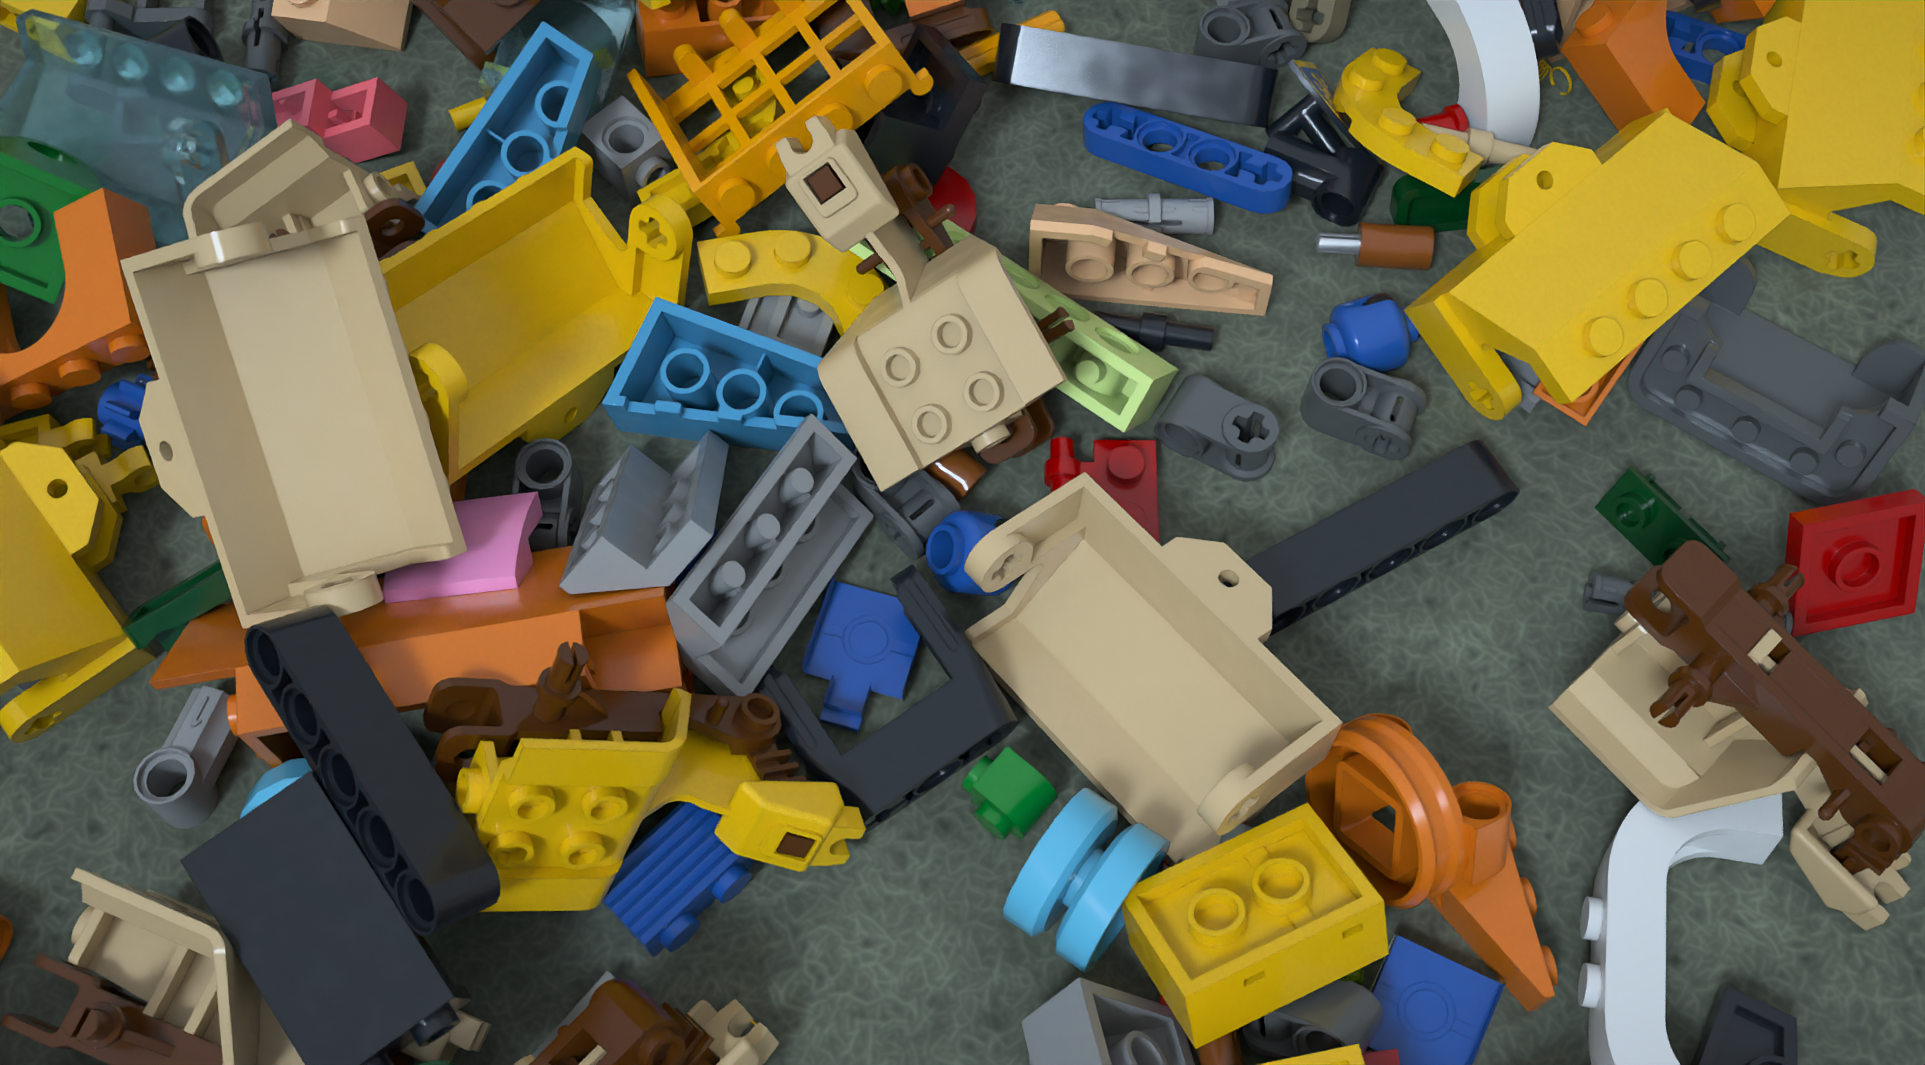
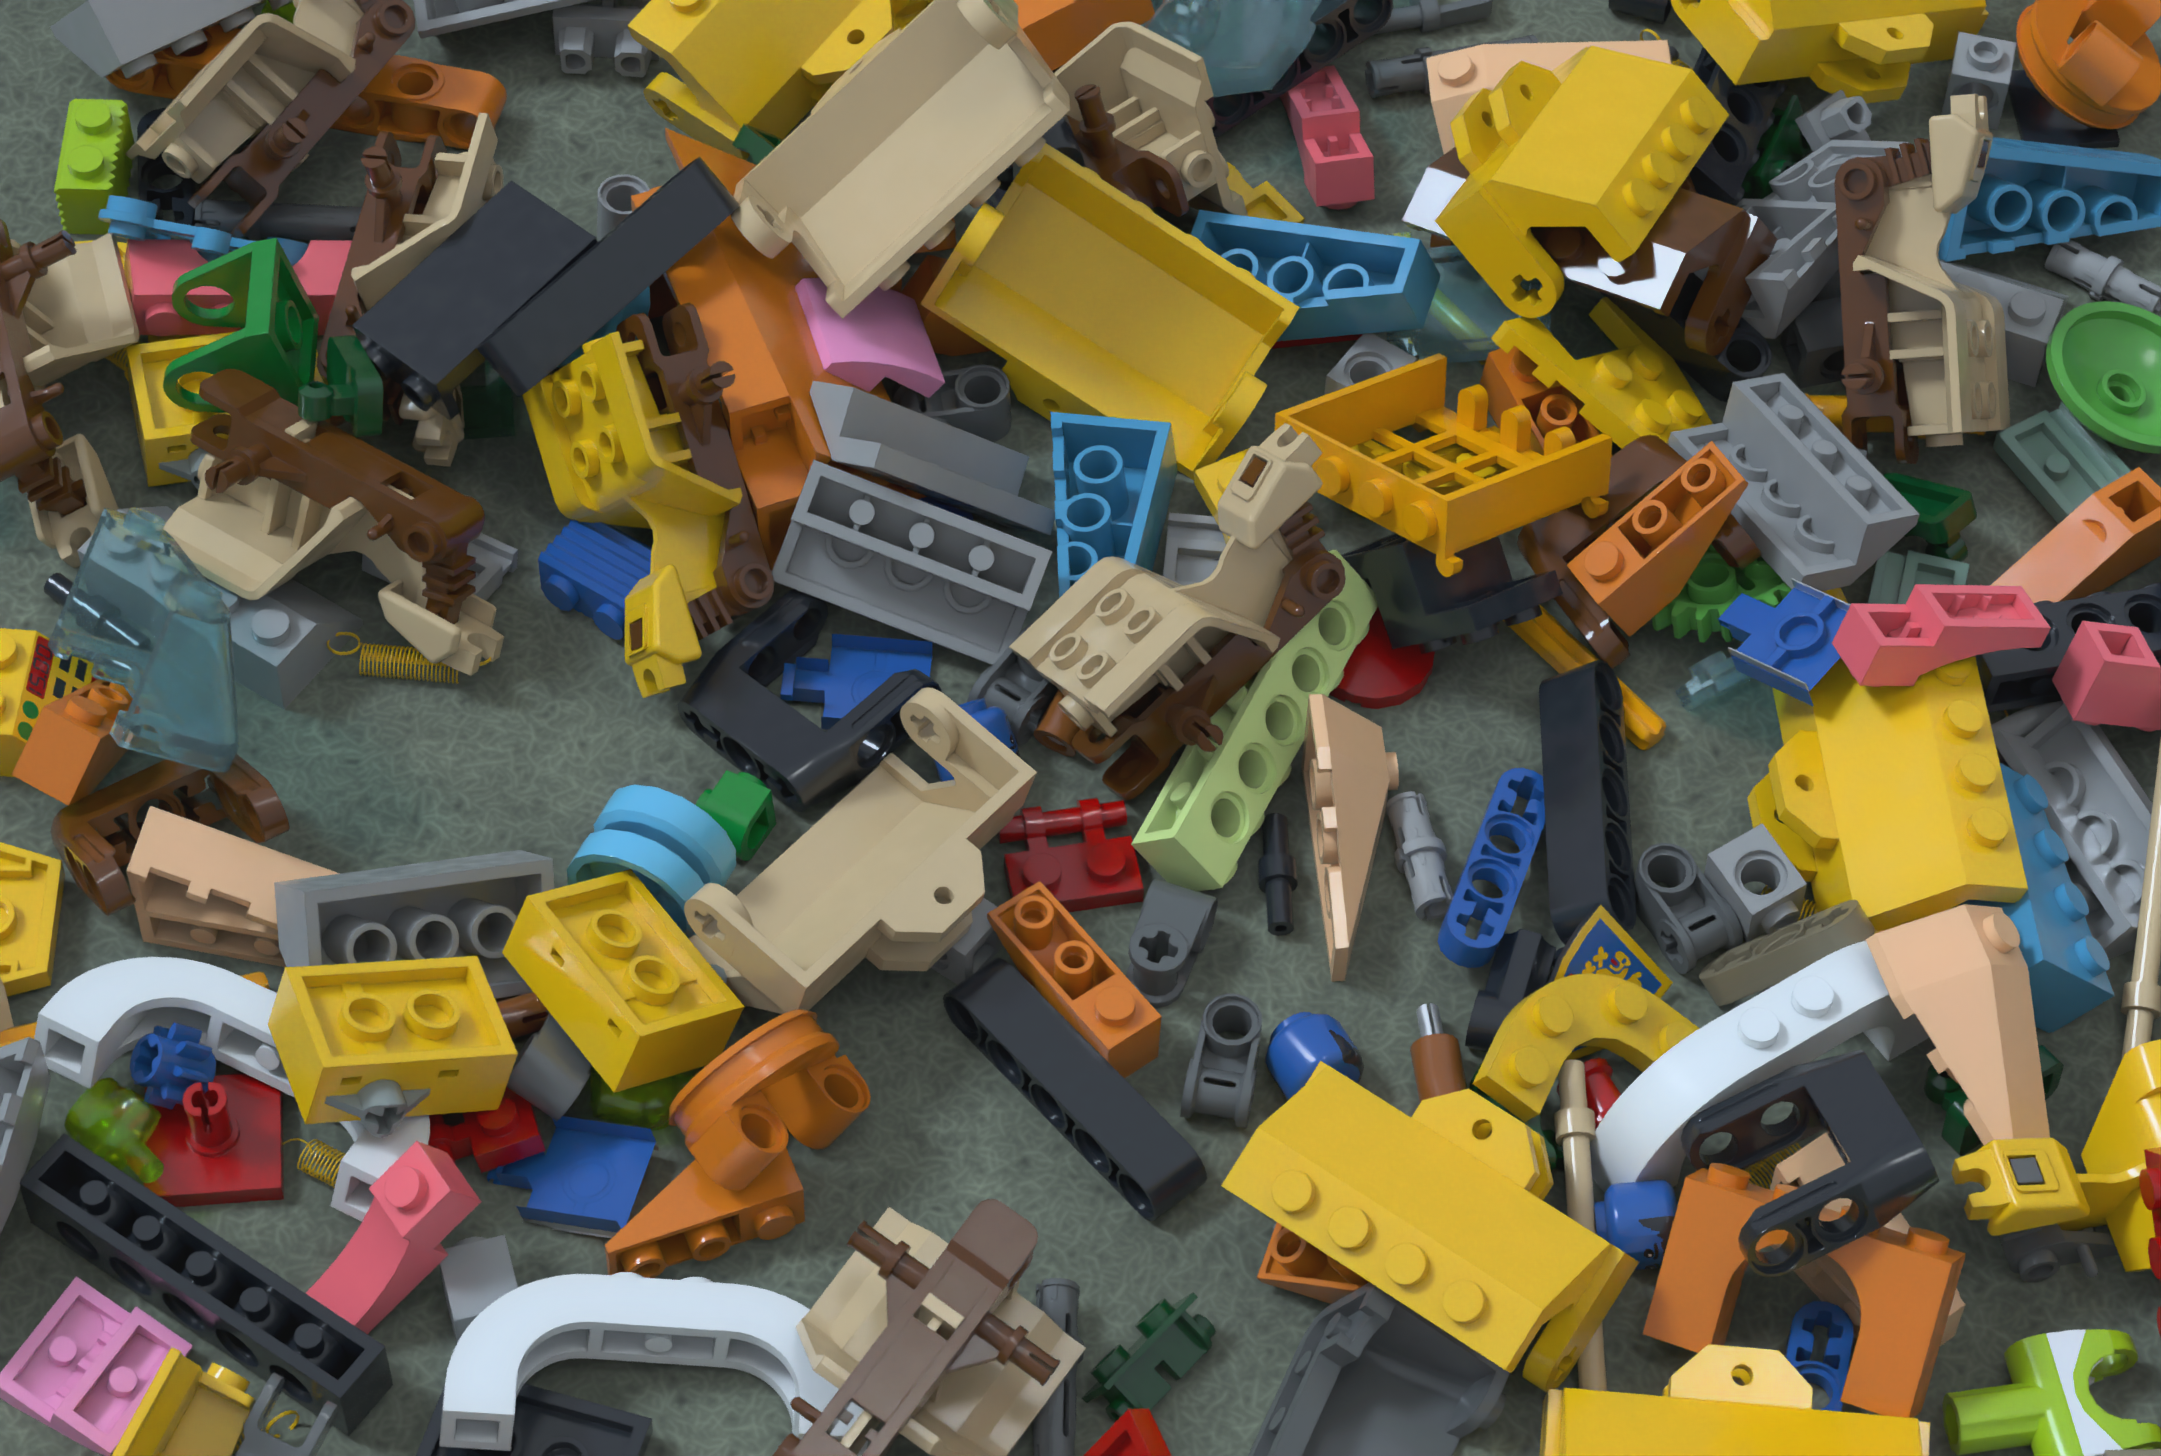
camera: 75 degrees right, 10 degrees down
(1276, 500) = (1078, 978): none -> orange slope
(1565, 117) = (1638, 1219): none -> blue head

